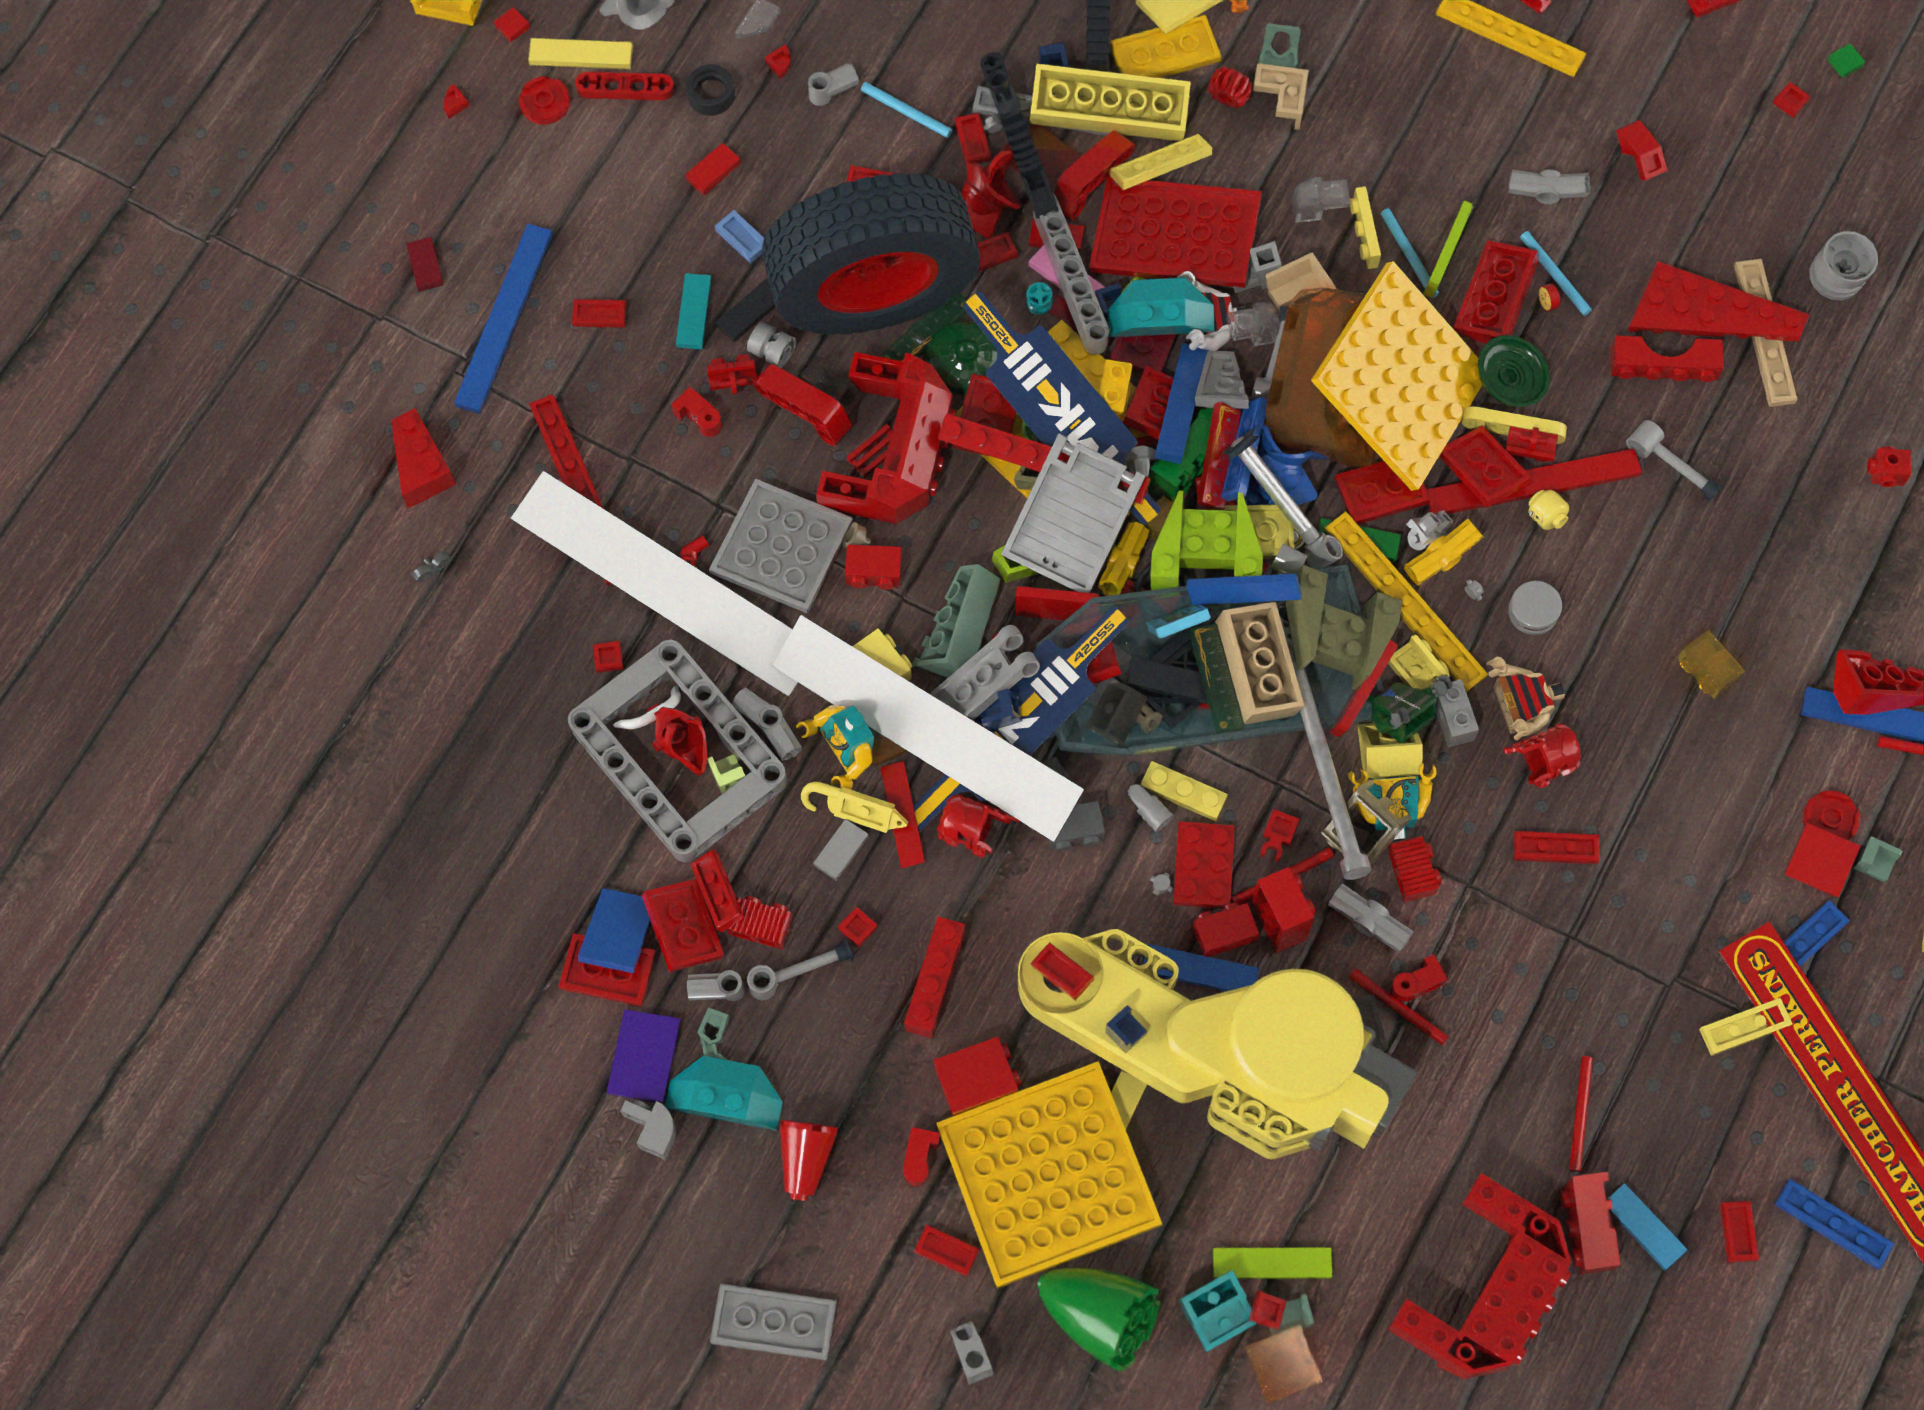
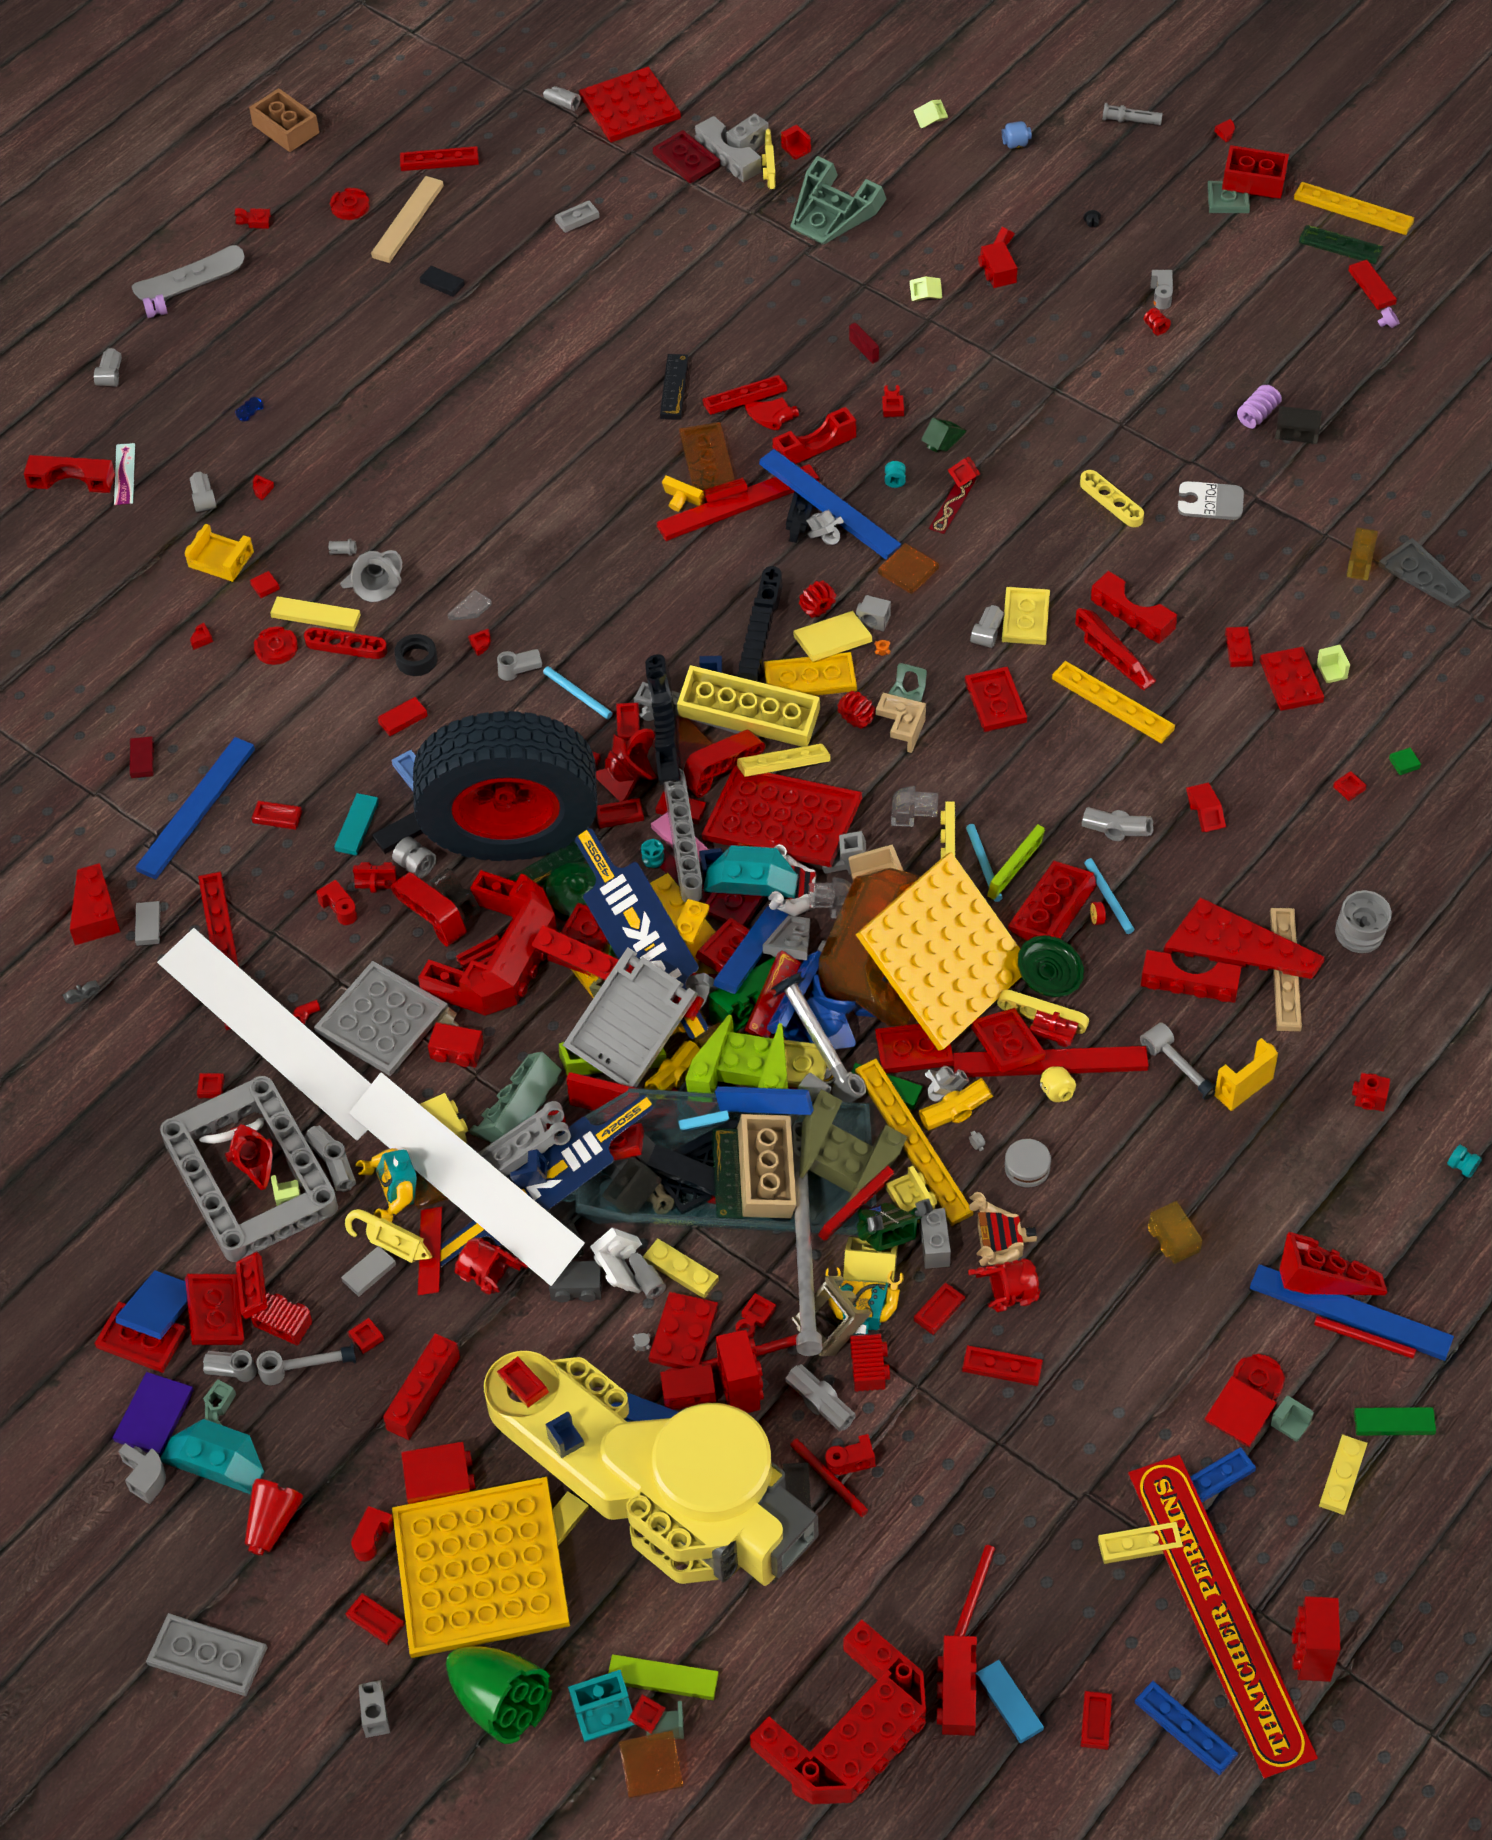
camera: 10 degrees right, 15 degrees down
(485, 470) = (147, 923): none -> light grey tile
(1107, 796) = (611, 1254): none -> white bracket
(1380, 50) = (995, 699): none -> red plate
(1474, 792) = (939, 1308): none -> red tile
(1741, 485) = (1235, 1088): none -> yellow panel

